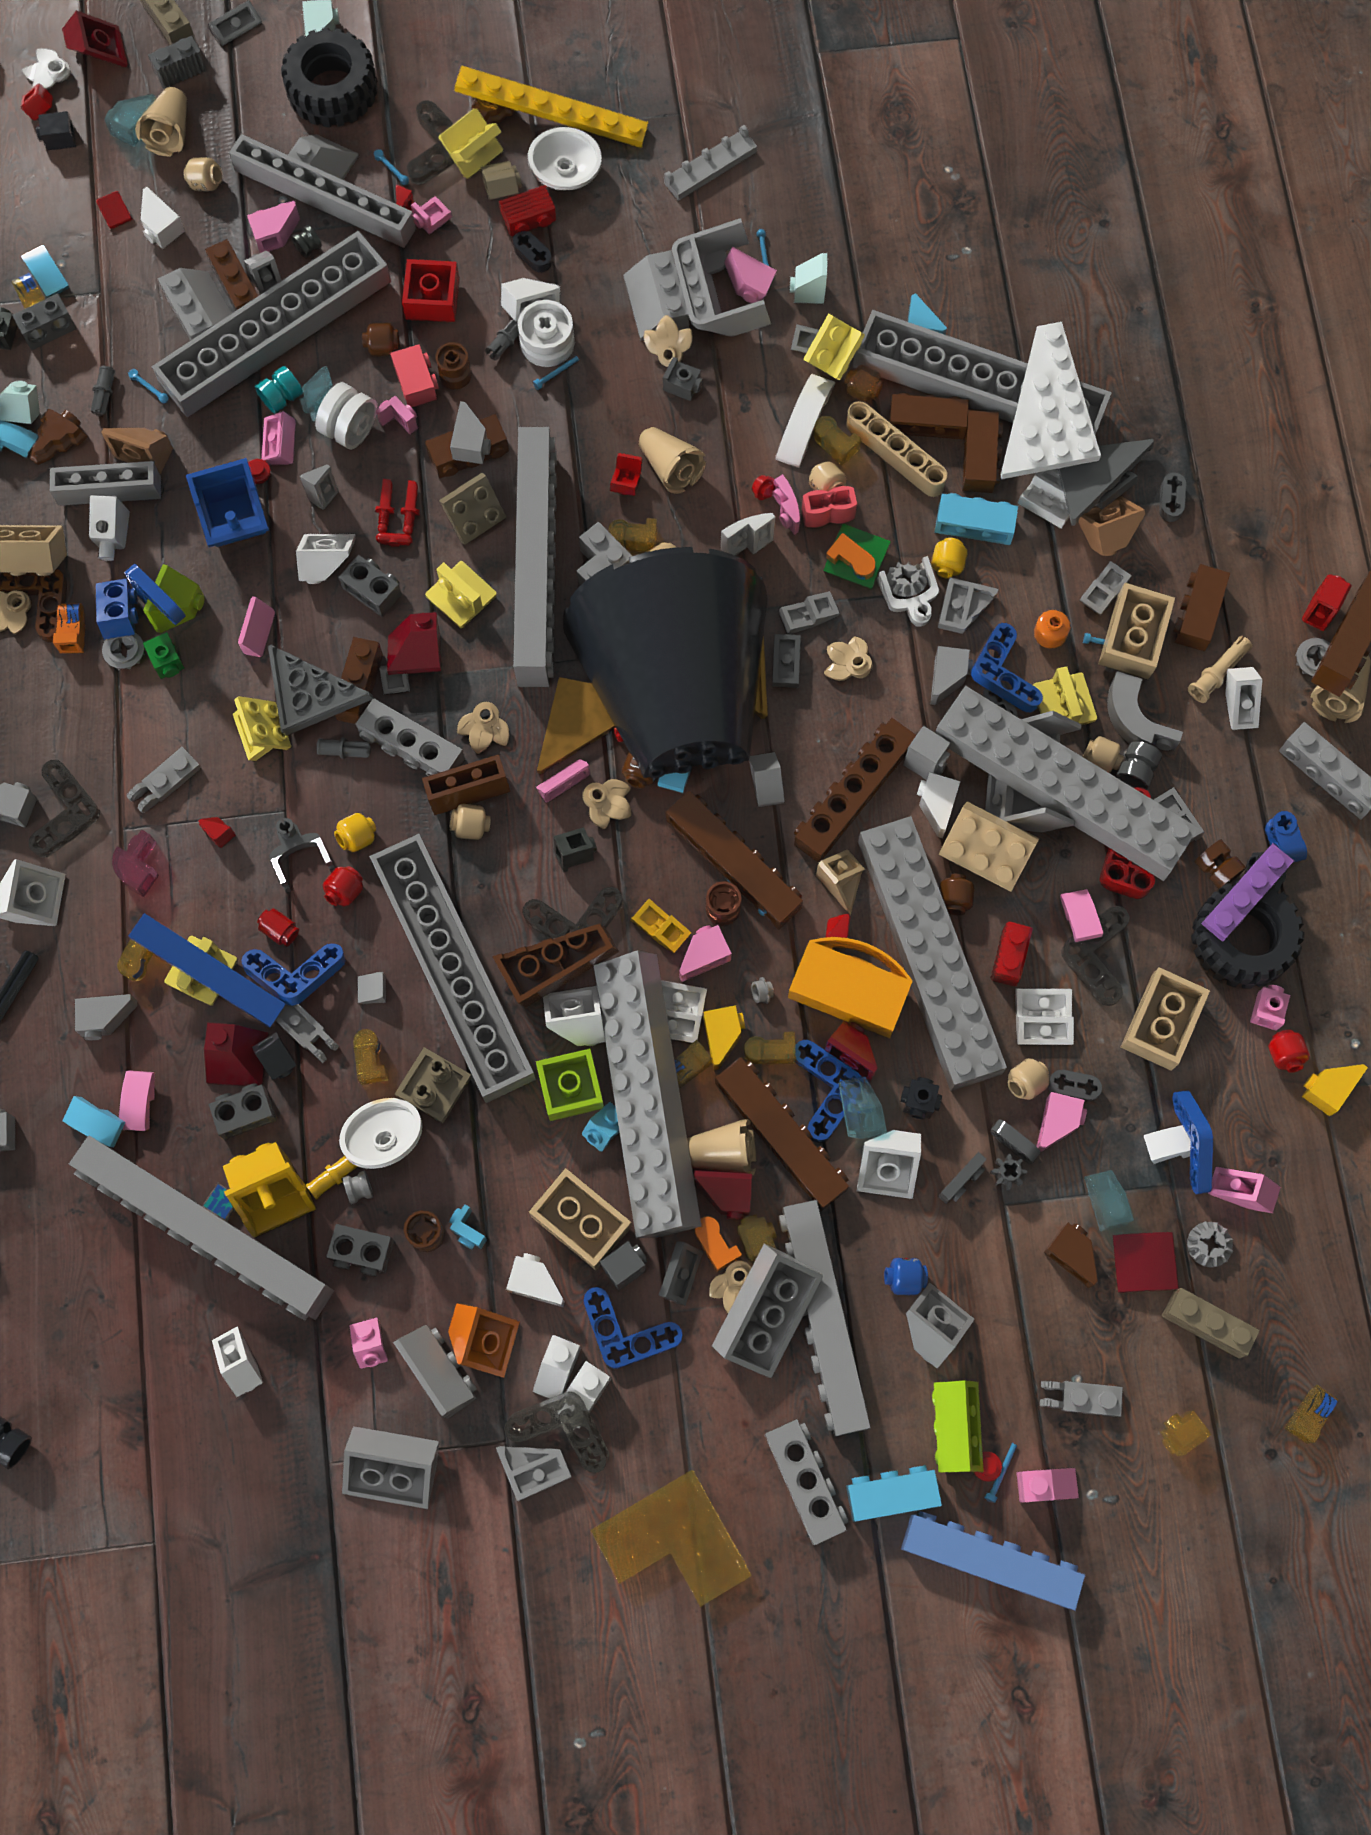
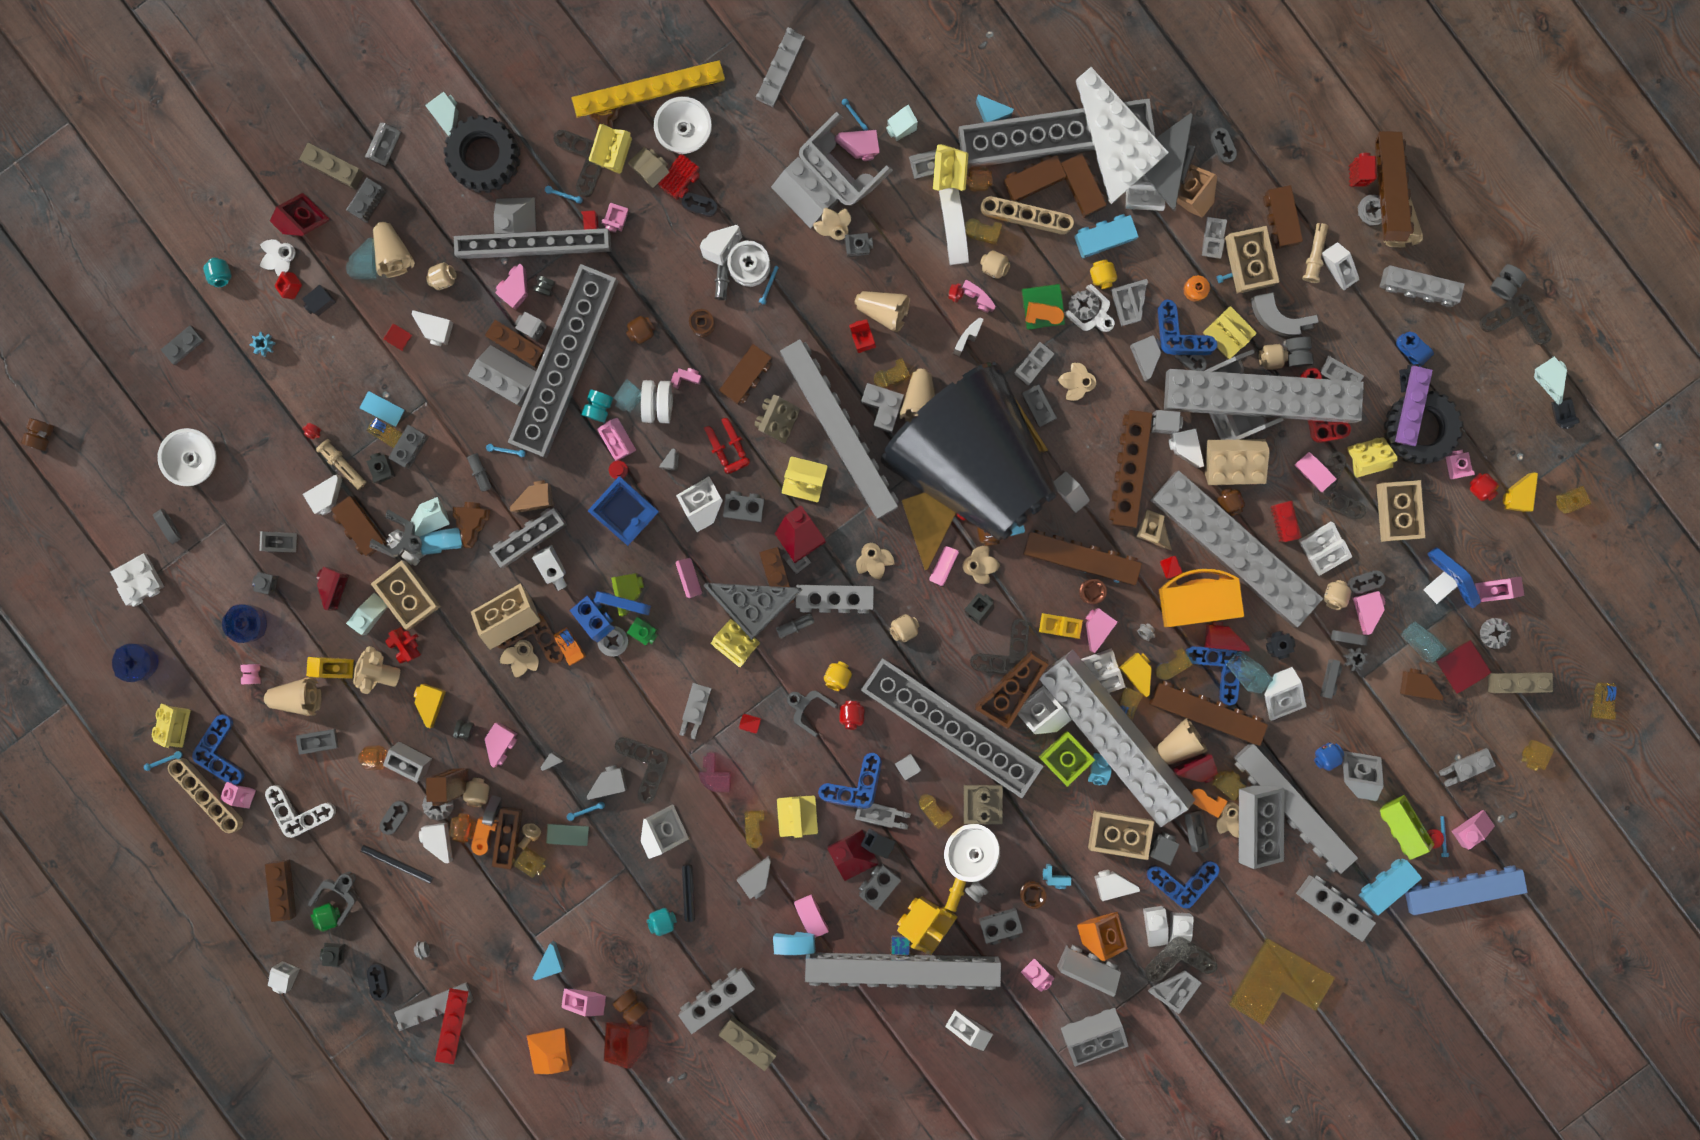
camera: 30 degrees left, 15 degrees up
(206, 970) = (808, 818): blue tile -> none
(277, 927) = (827, 763): red brick -> none
(414, 376) = (679, 344): coral brick -> none
(431, 290) = (653, 276): red brick -> none
(466, 784) = (889, 607): reddish brown brick -> none
(469, 437) = (749, 373): light grey slope -> none
(835, 506) = (1012, 281): coral brick -> none
(1162, 938) = (1371, 456): none -> light yellow bracket
(1227, 871) = (1389, 393): reddish brown wheel -> none

